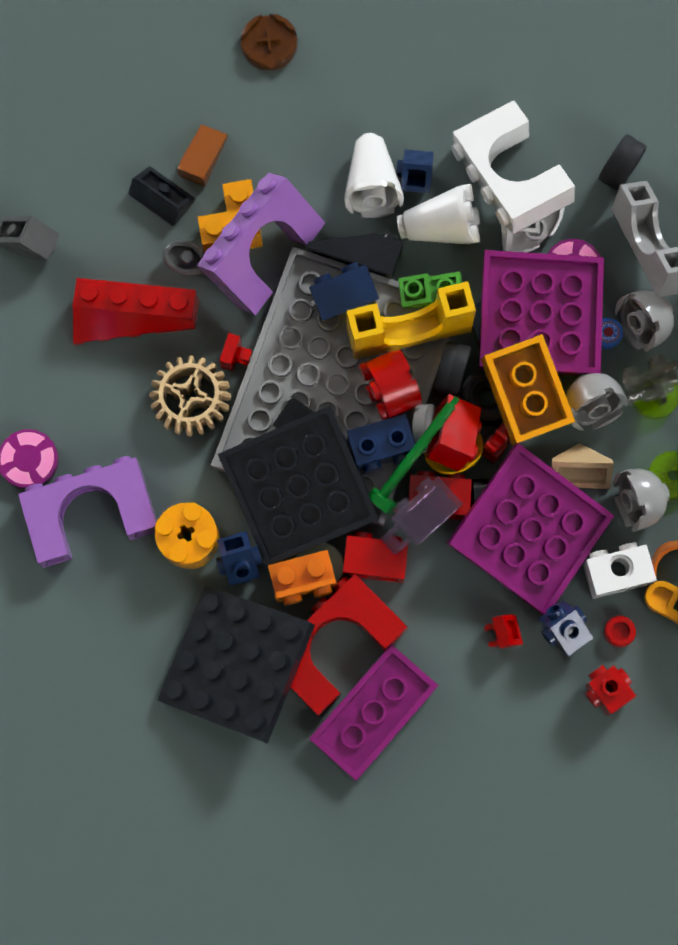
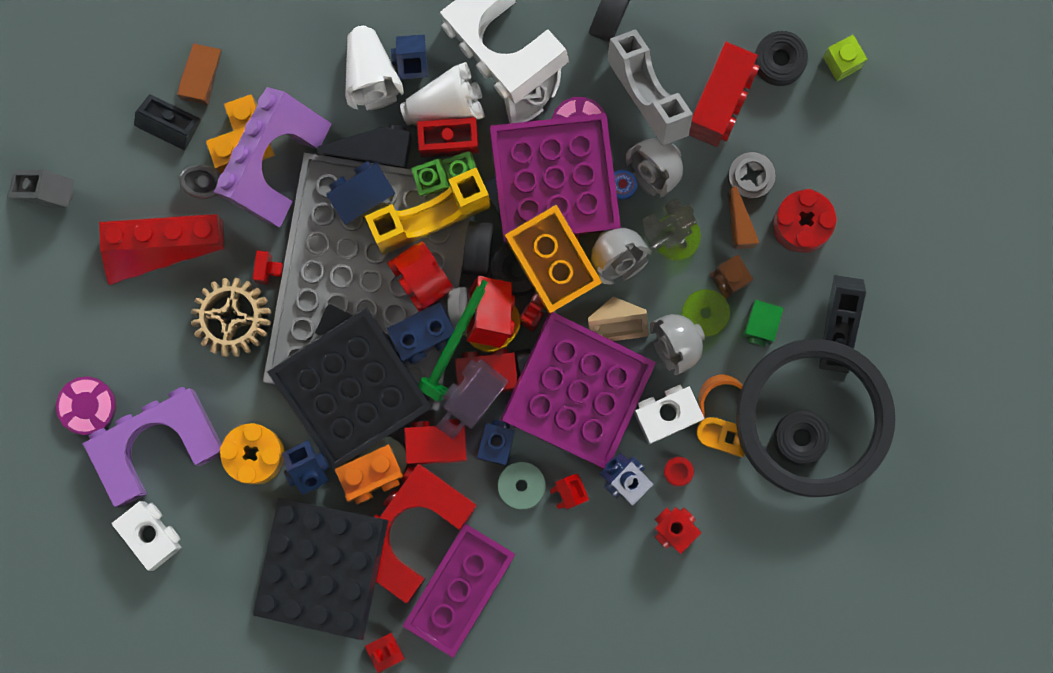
camera: 10 degrees left, 5 degrees up
(52, 586) = (131, 529): none -> white brick
(285, 763) = (384, 652): none -> red tile
(437, 568) = (496, 443): none -> dark blue brick
(440, 254) = (447, 137): none -> red brick
(465, 607) = (521, 499): none -> sand green piece

